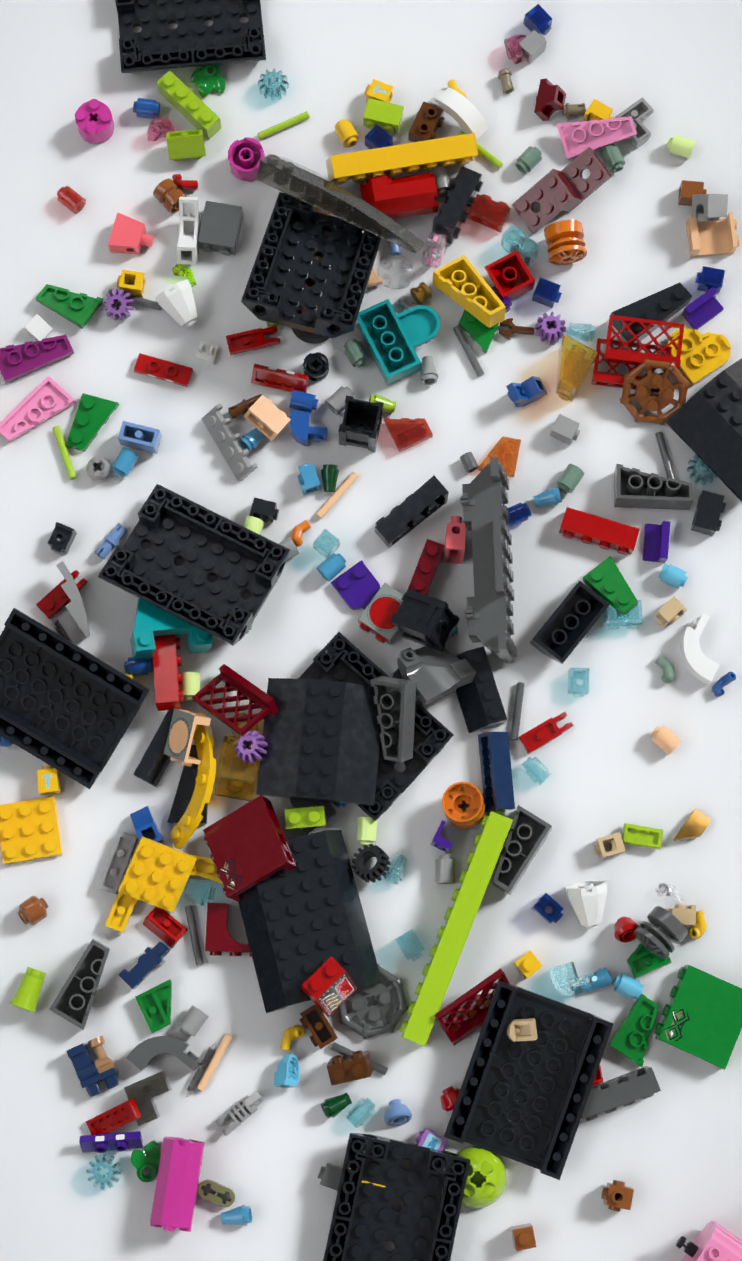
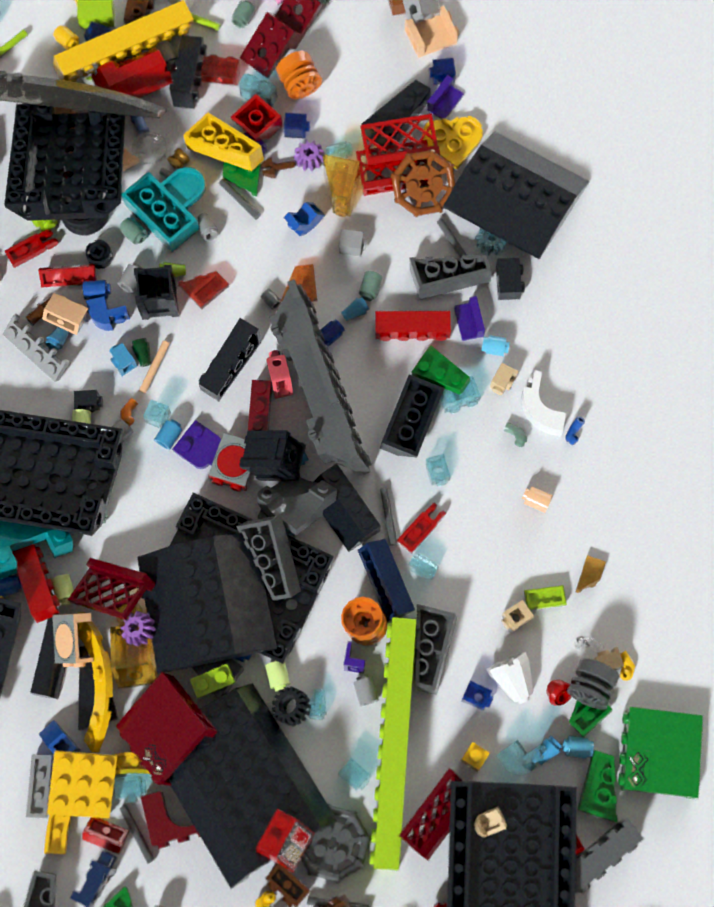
camera: 15 degrees left, 5 degrees down
(434, 249) = (179, 116): clear head -> none

